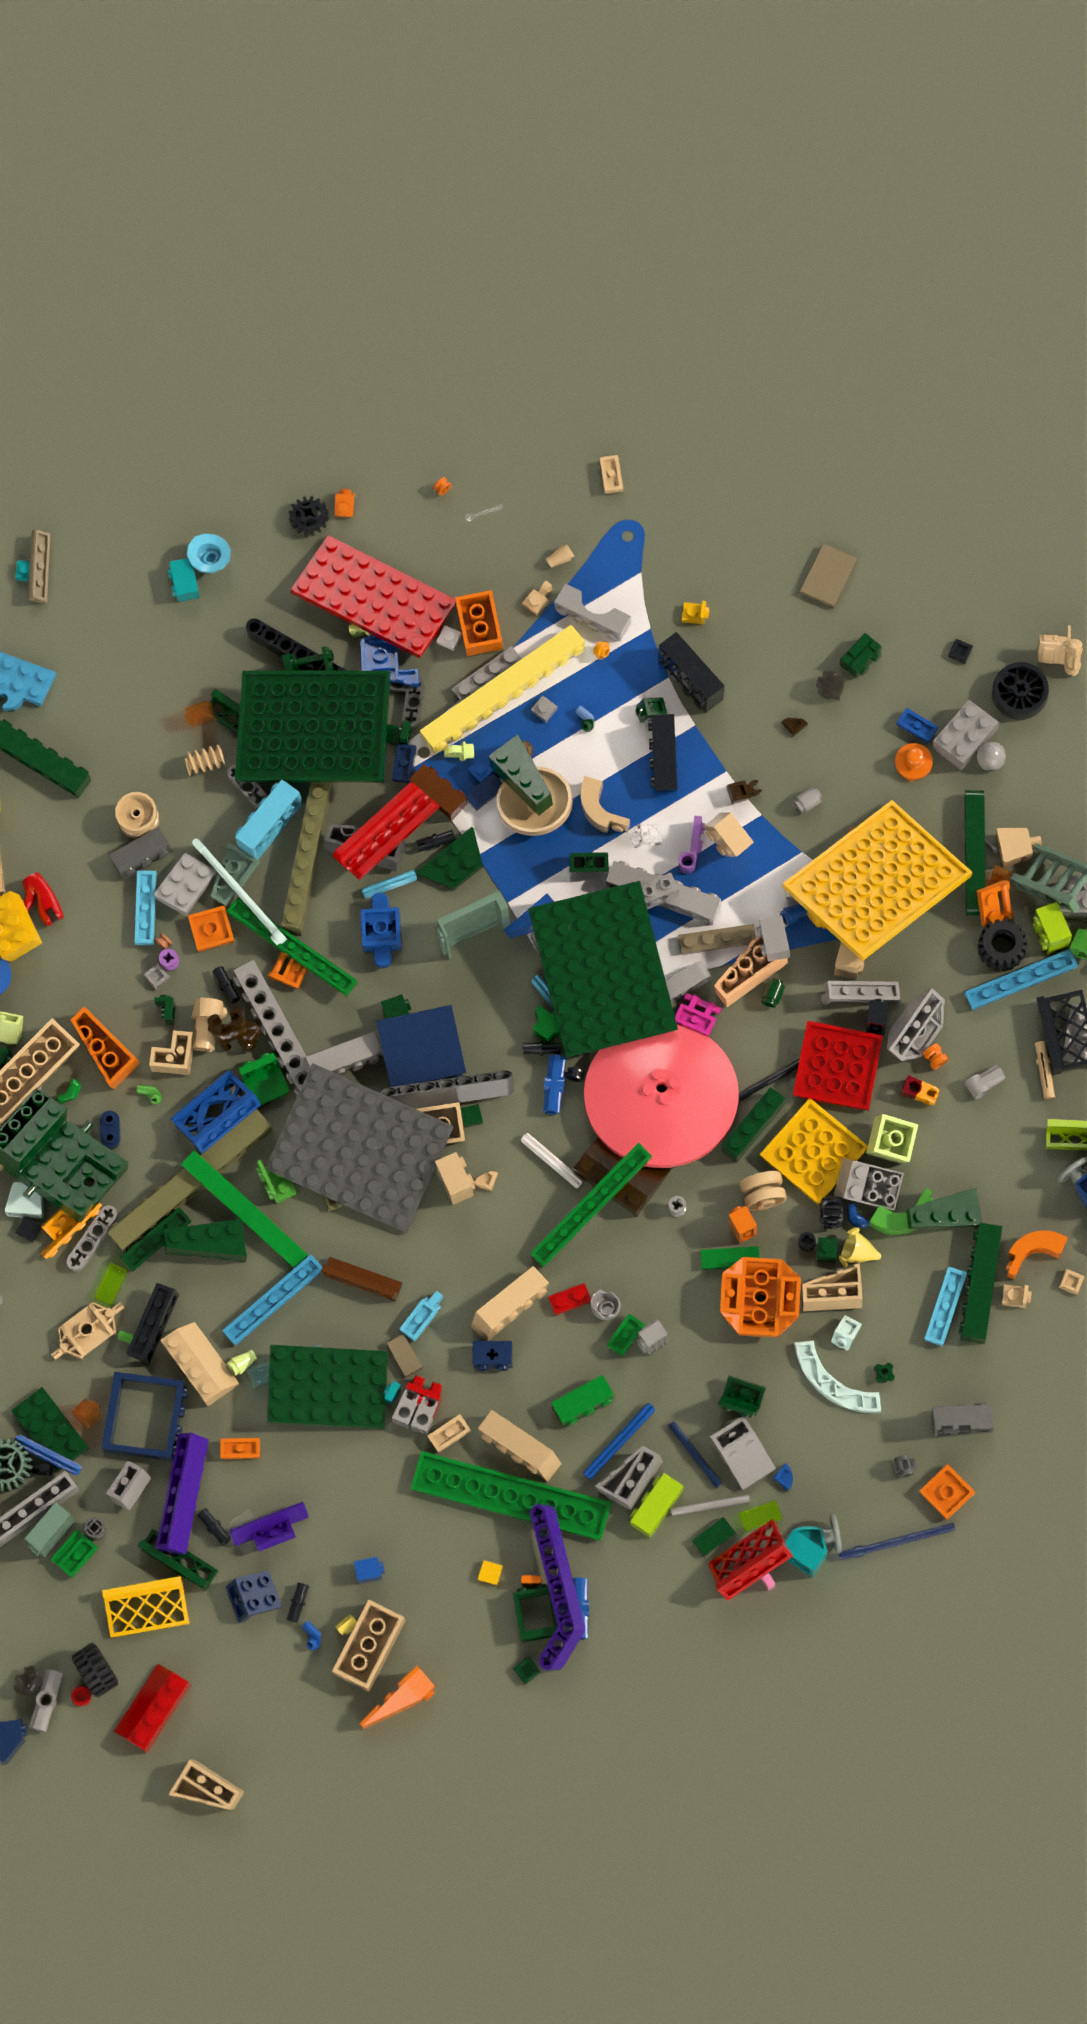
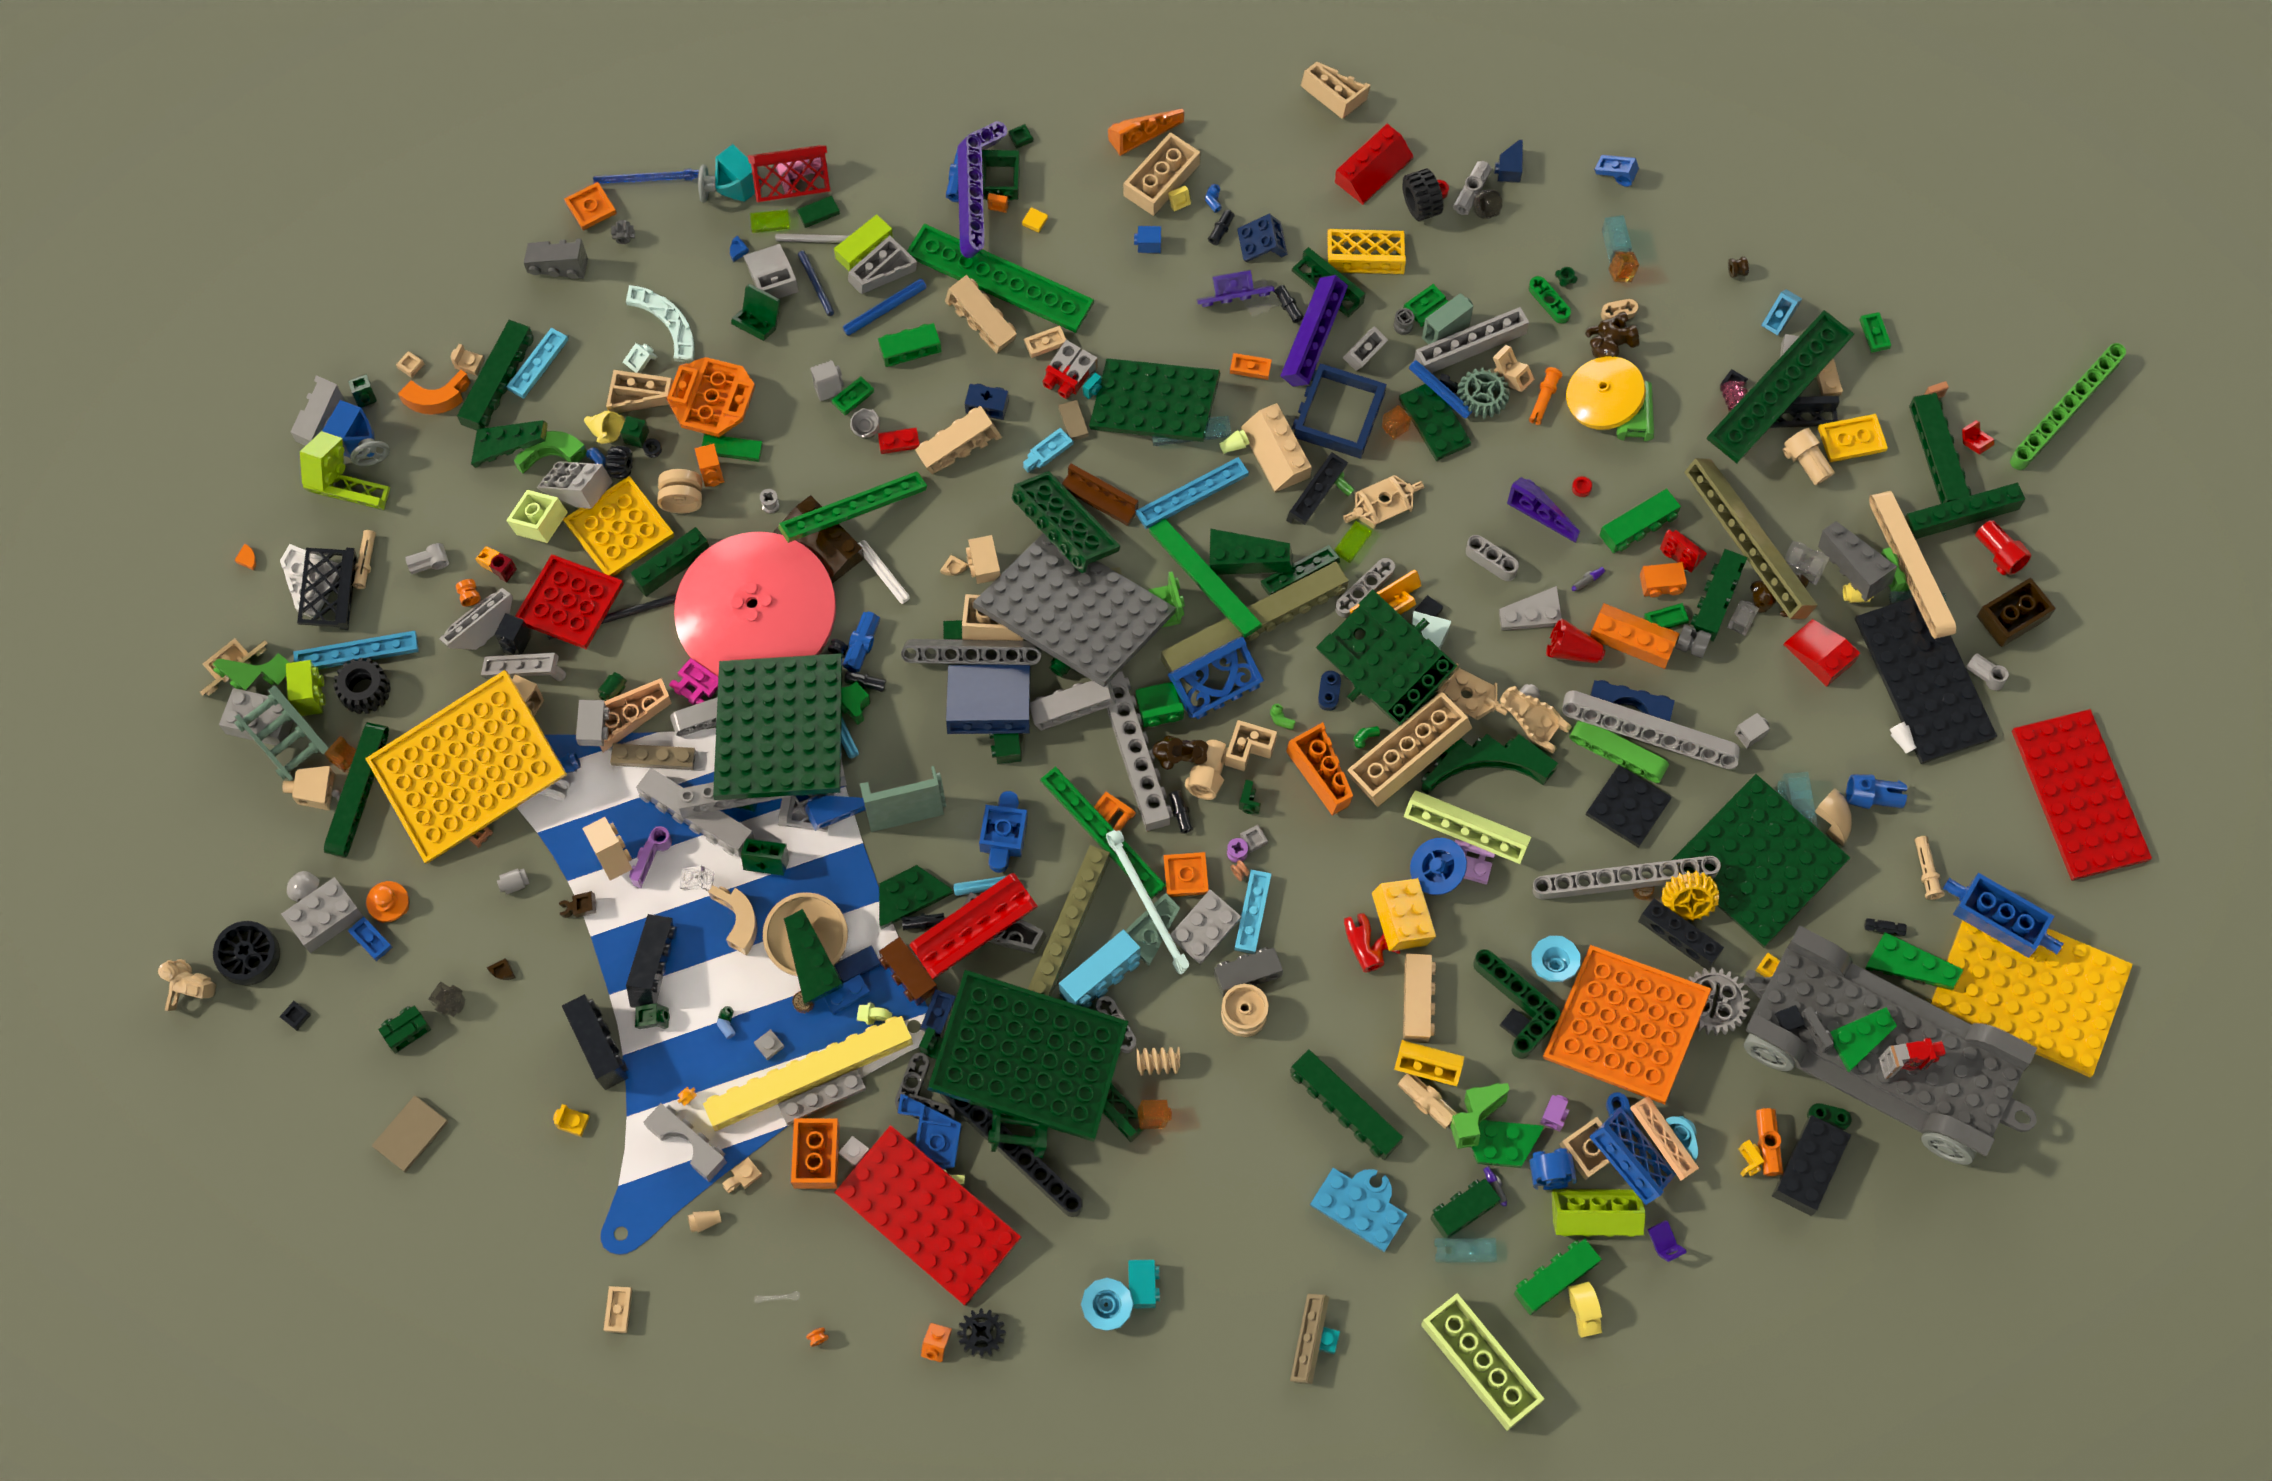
camera: 175 degrees left, 5 degrees down
(388, 1238) = (1064, 520): none -> dark green bracket
(880, 1377) = (619, 321): dark green plate -> none
(989, 903) = (353, 725): orange plate -> none

